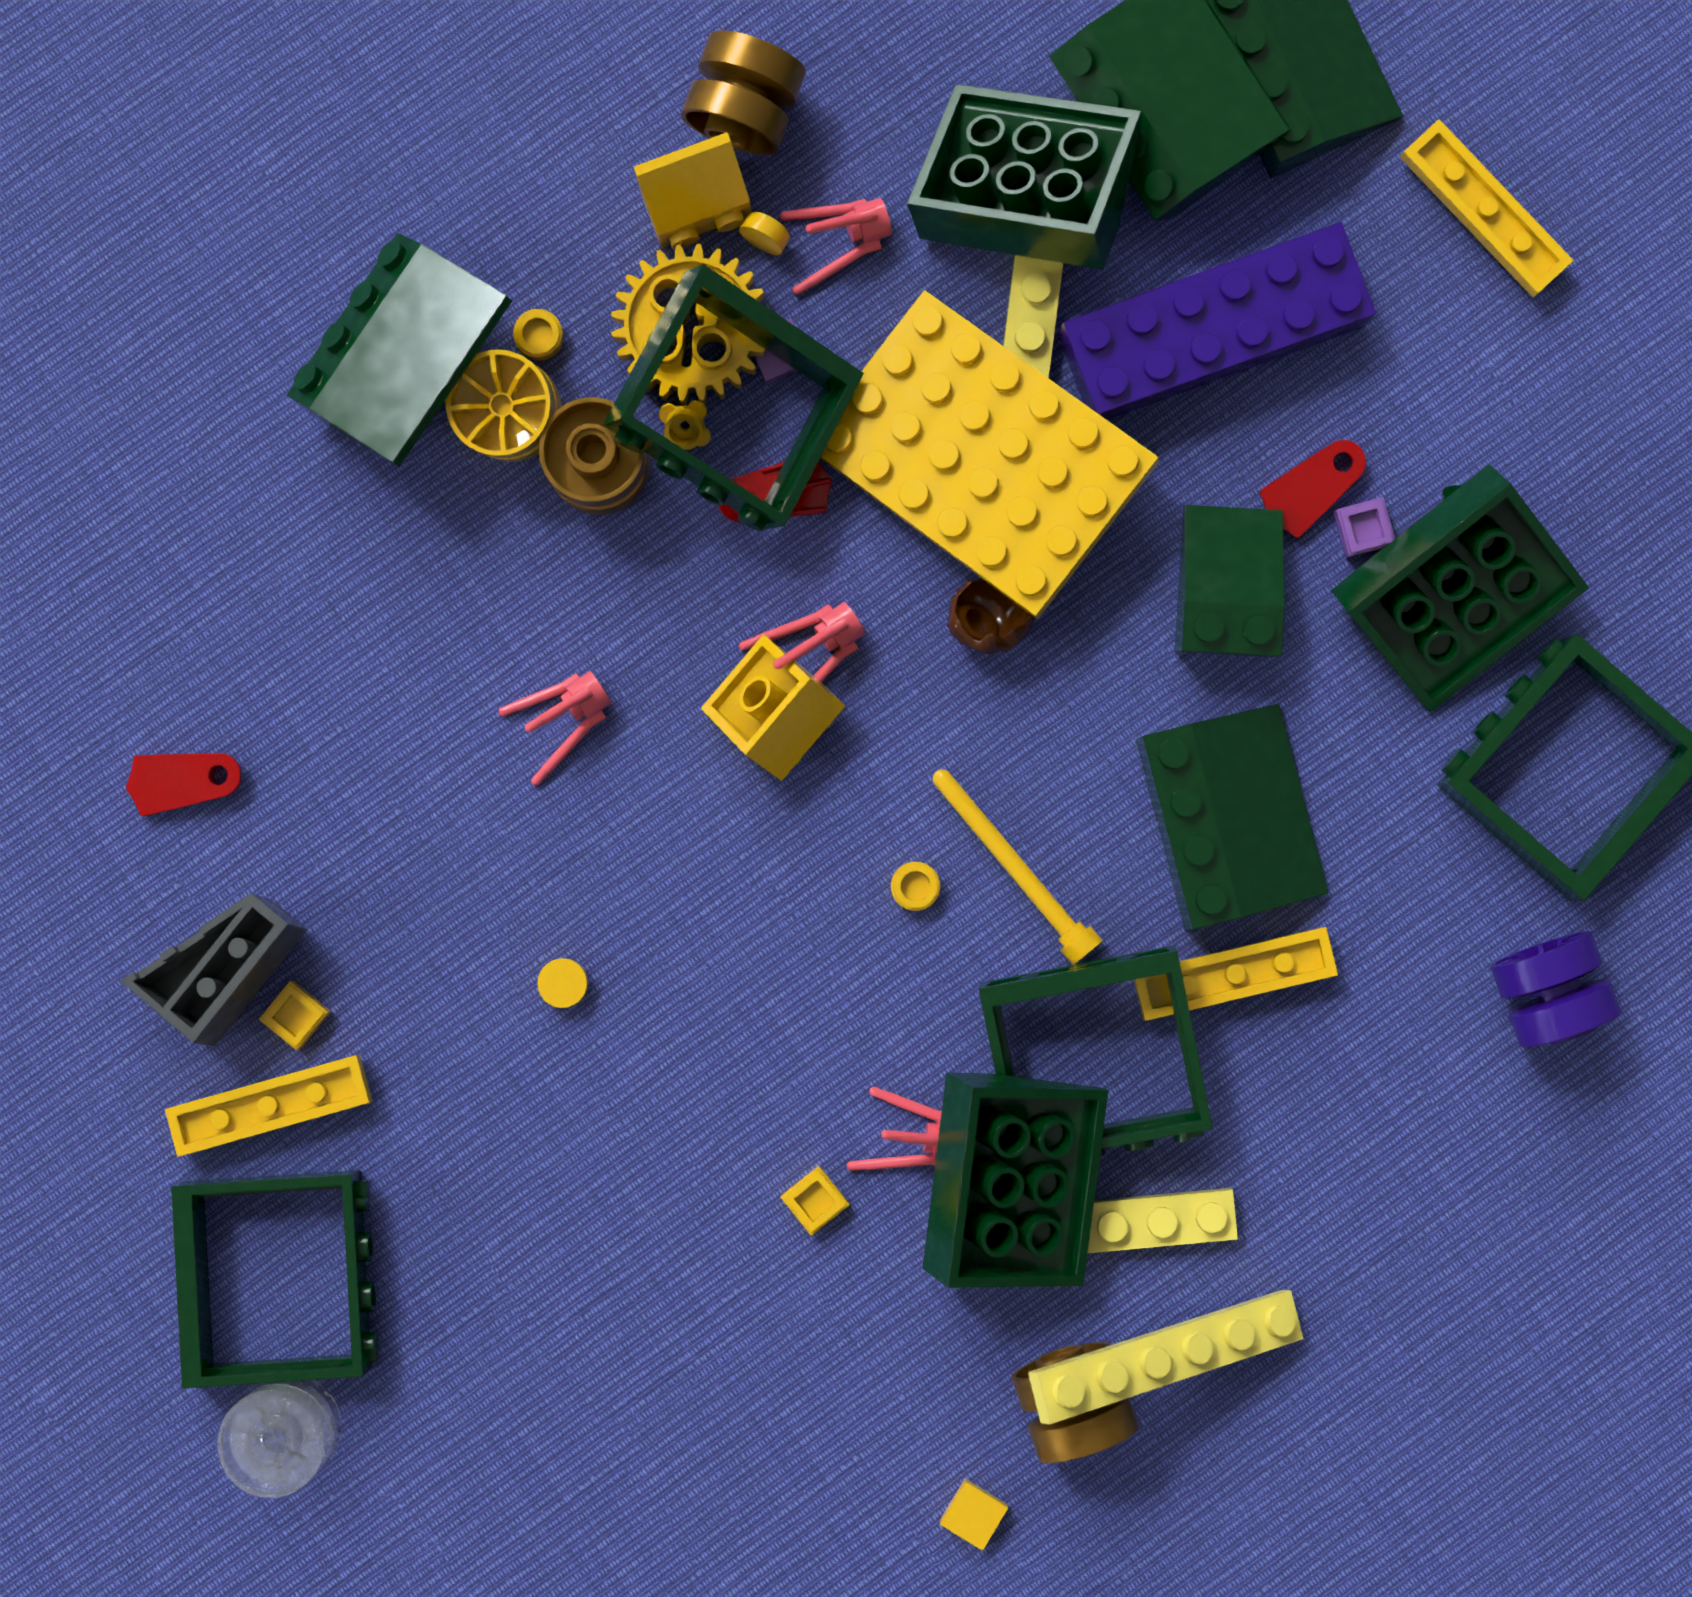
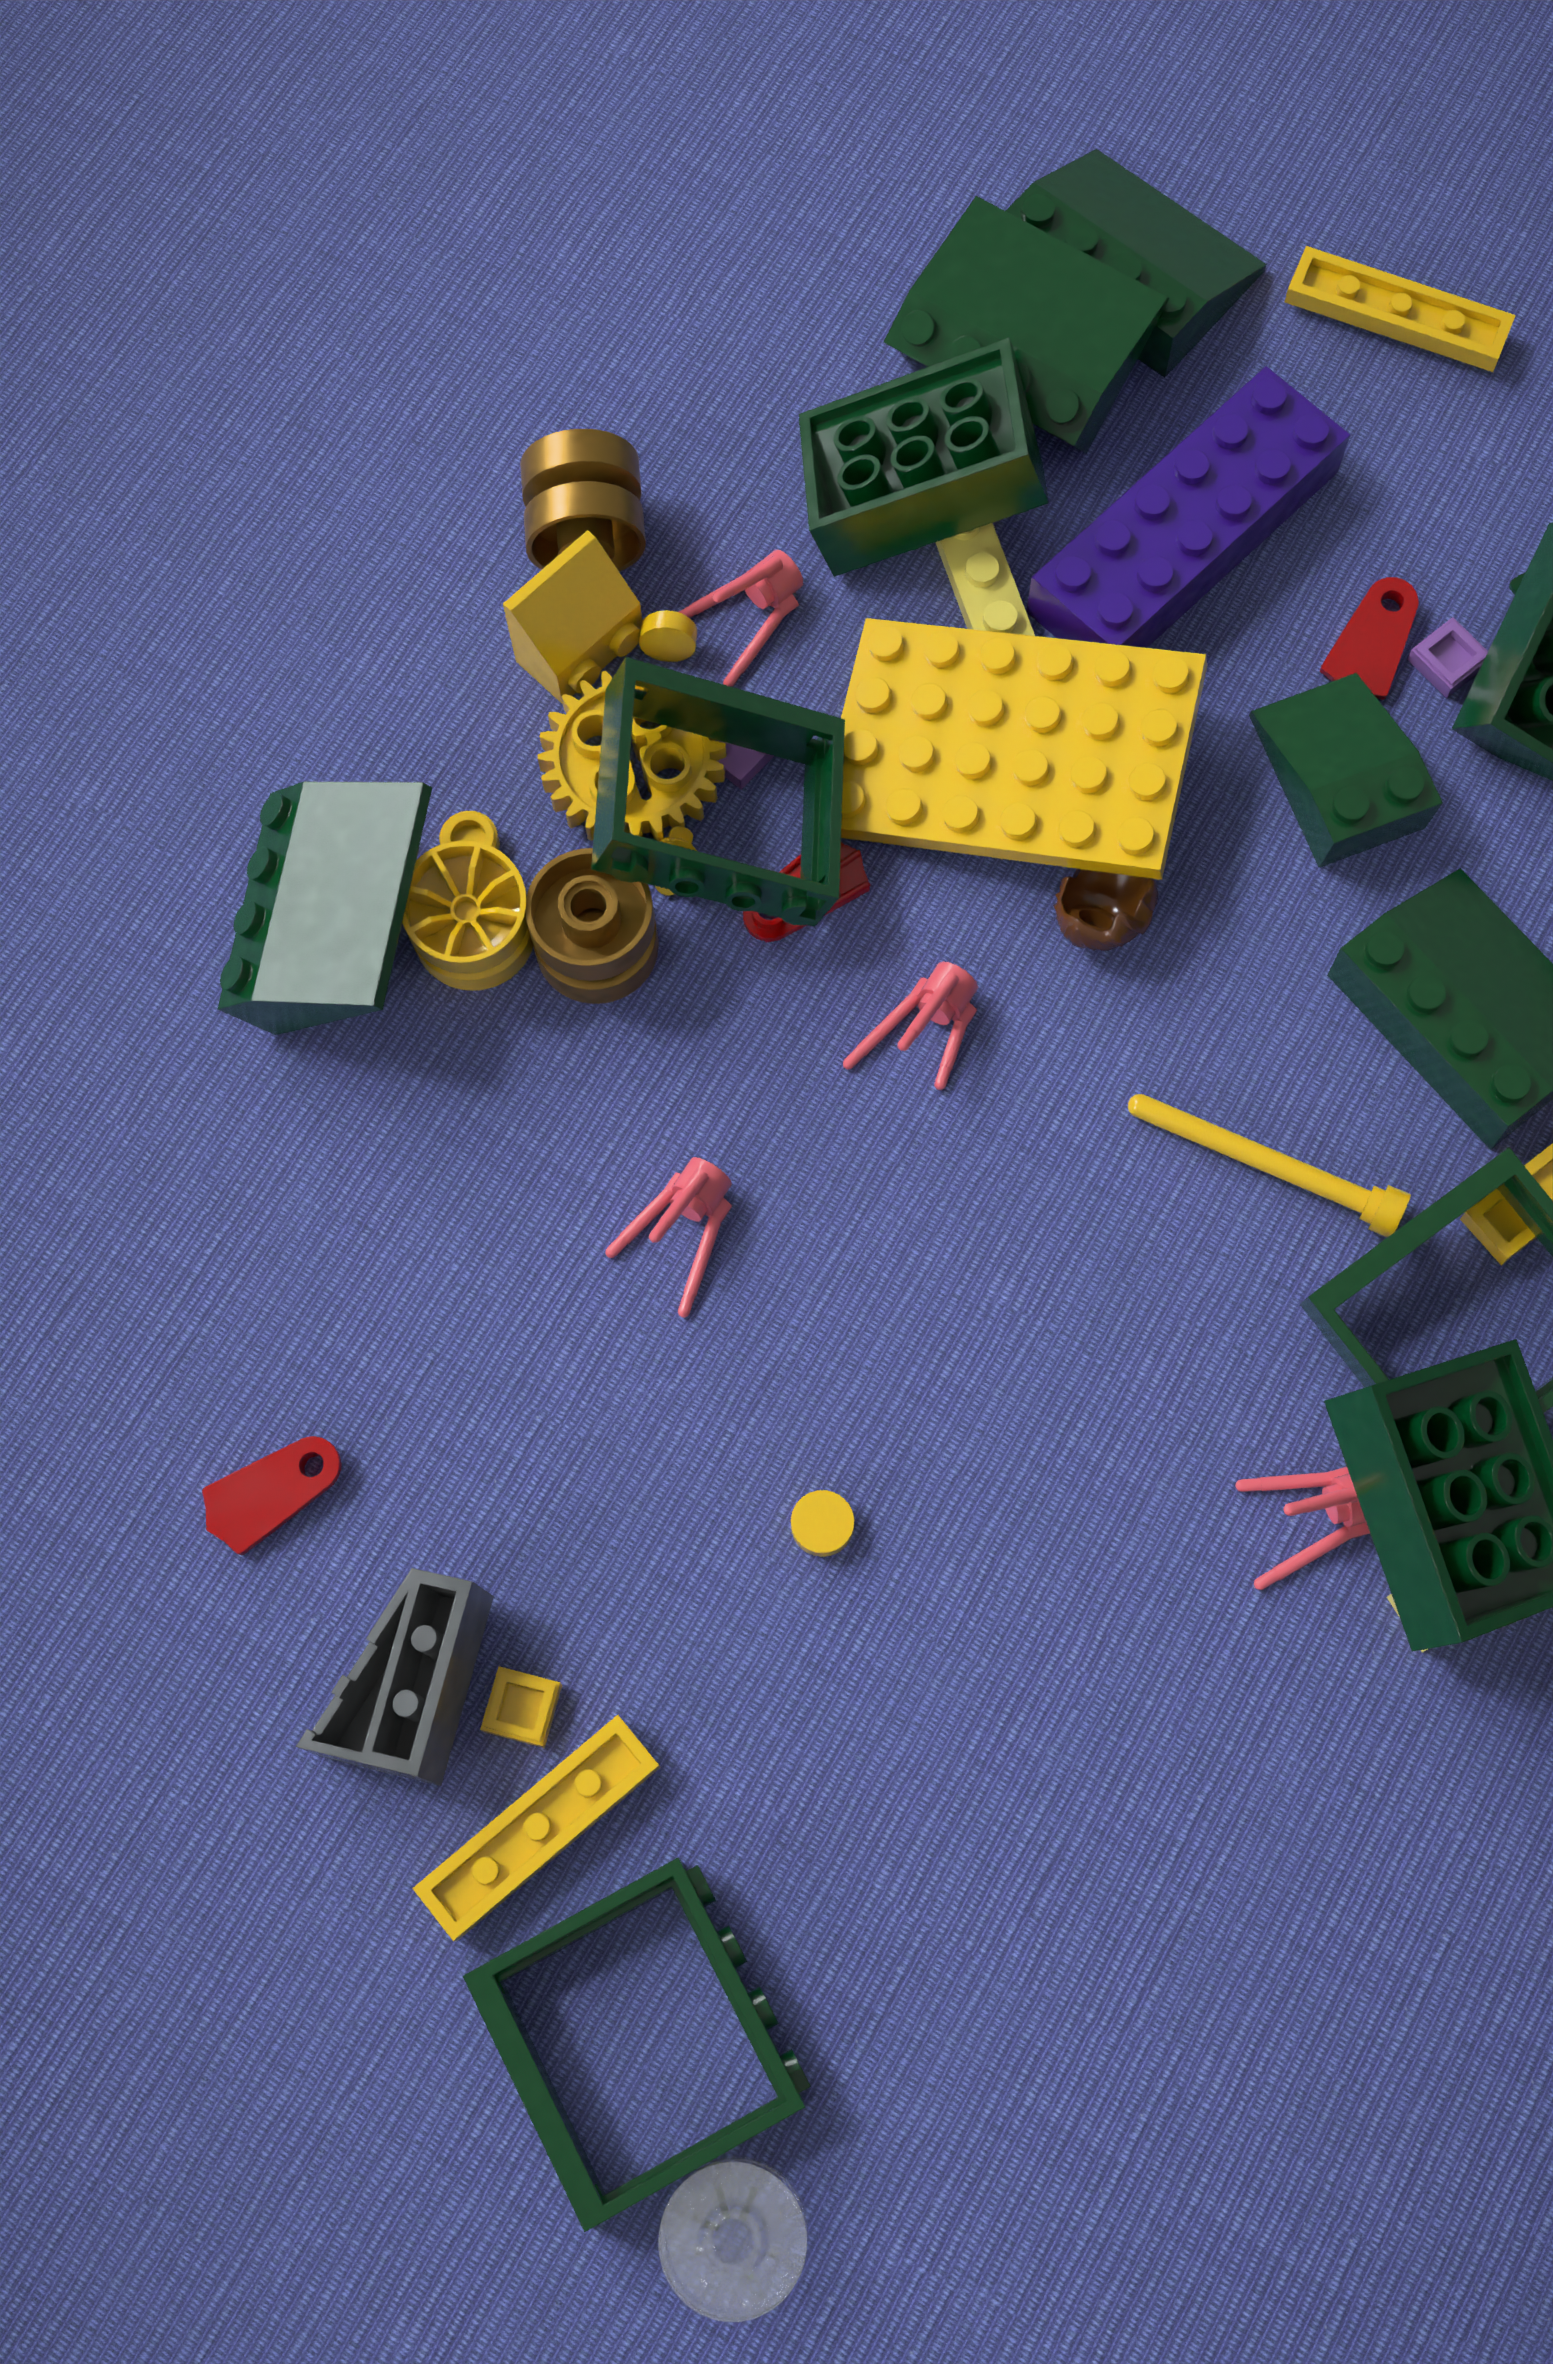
camera: 20 degrees left, 15 degrees down
(771, 710) = (916, 1105): yellow slope -> none
(815, 1200) = (1239, 1642): yellow tile -> none
(915, 886) = (1170, 1234): yellow tile -> none

